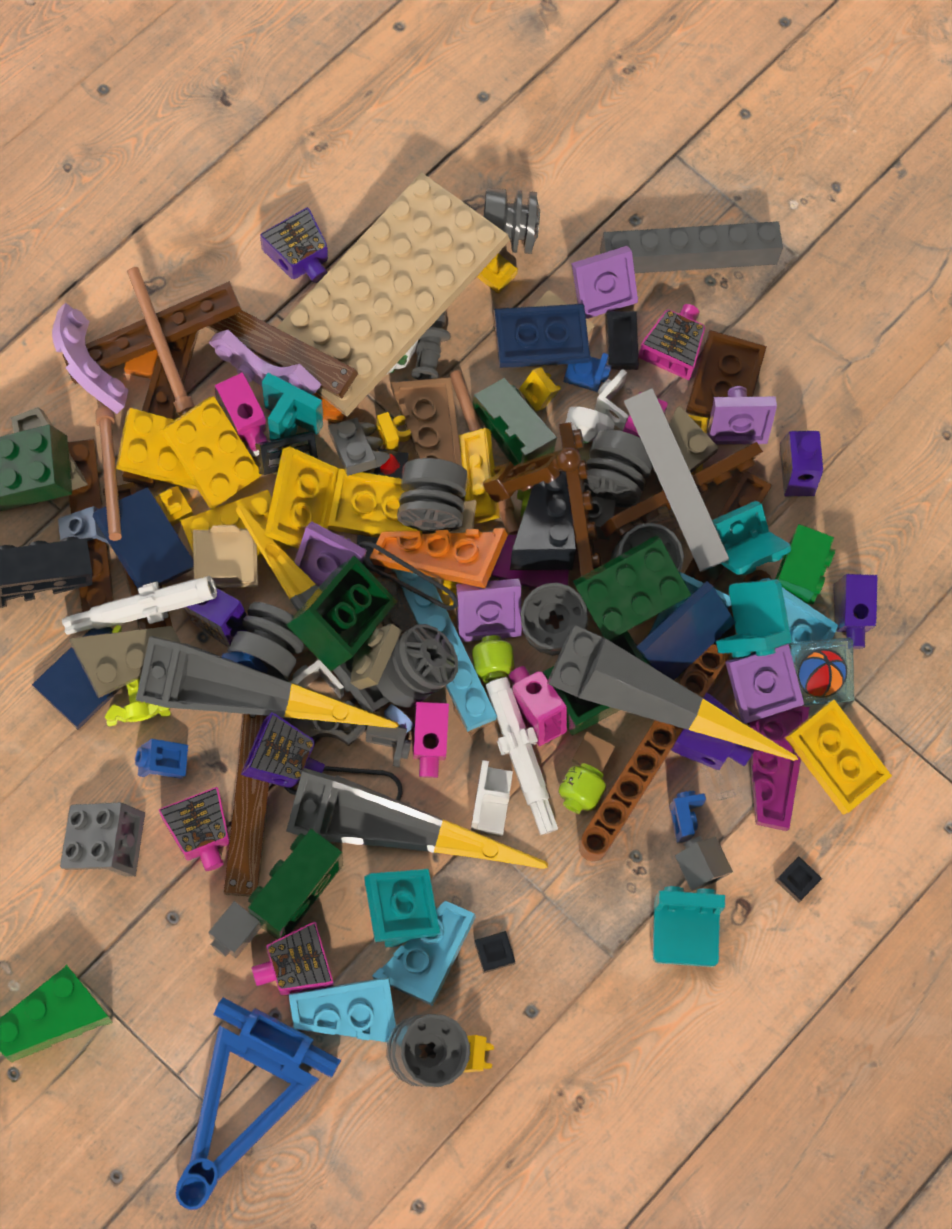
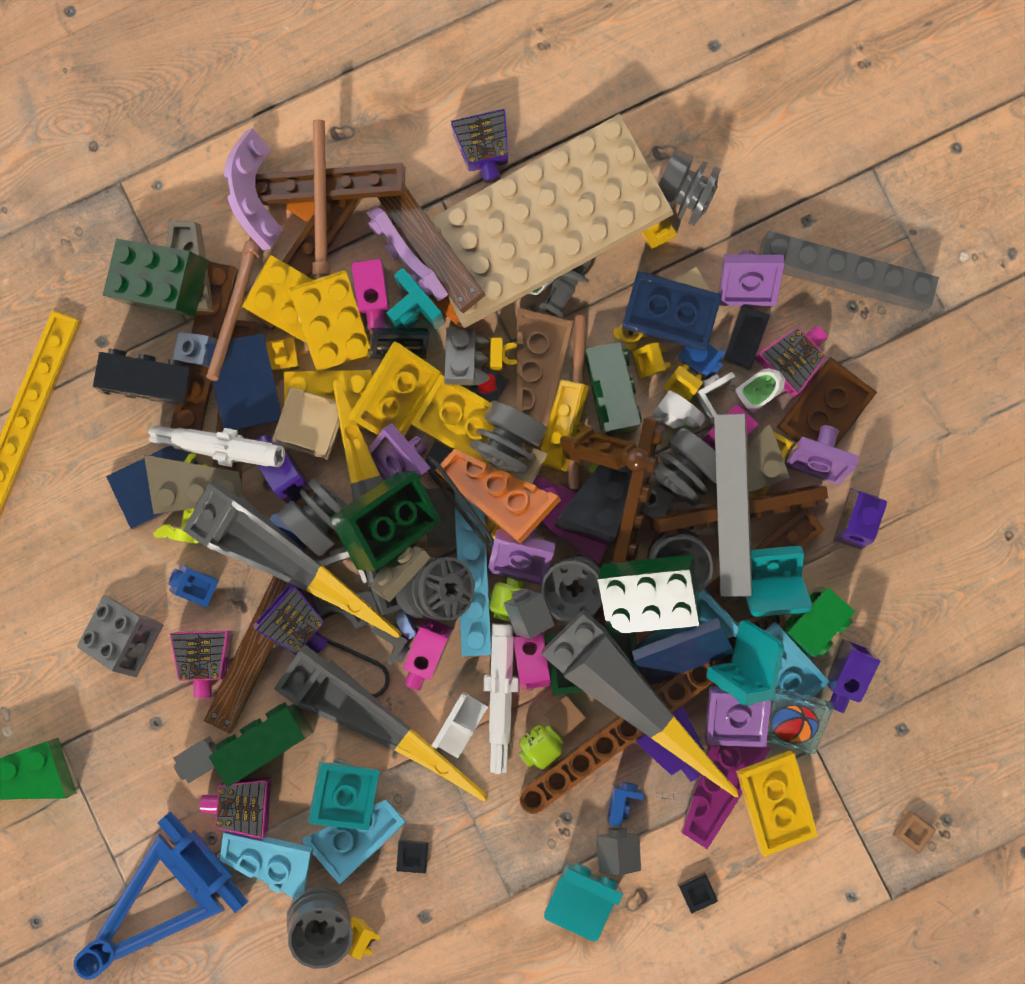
camera: 30 degrees right, 15 degrees up
(513, 379) = (629, 340): none -> yellow plate
(519, 653) = (528, 613): none -> dark grey brick
(580, 395) = (684, 383): none -> yellow tile
(657, 373) = (761, 388): none -> rock

